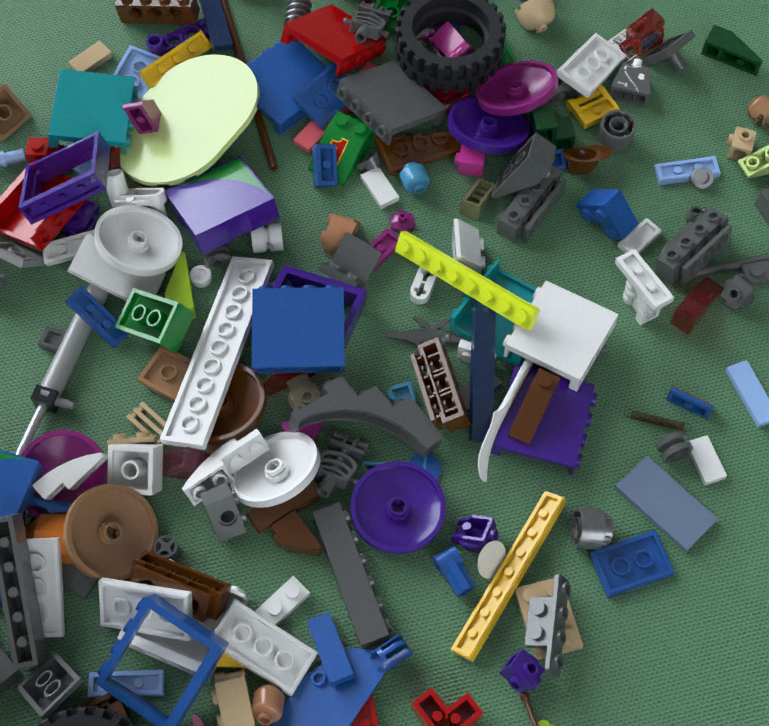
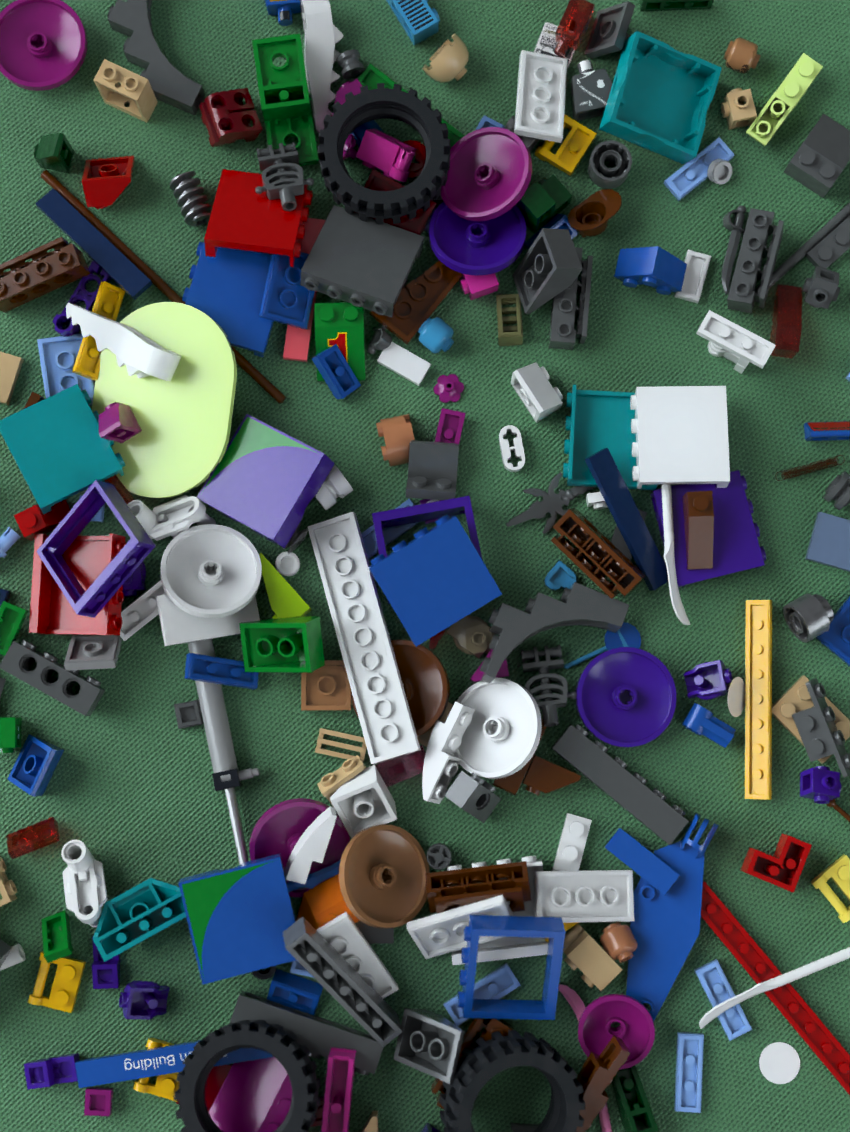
camera: 30 degrees left, 20 degrees up
(187, 71) = (130, 346): none -> white animal
(467, 280) = (561, 431): neon yellow plate -> none
(681, 104) = (660, 98): none -> teal tile

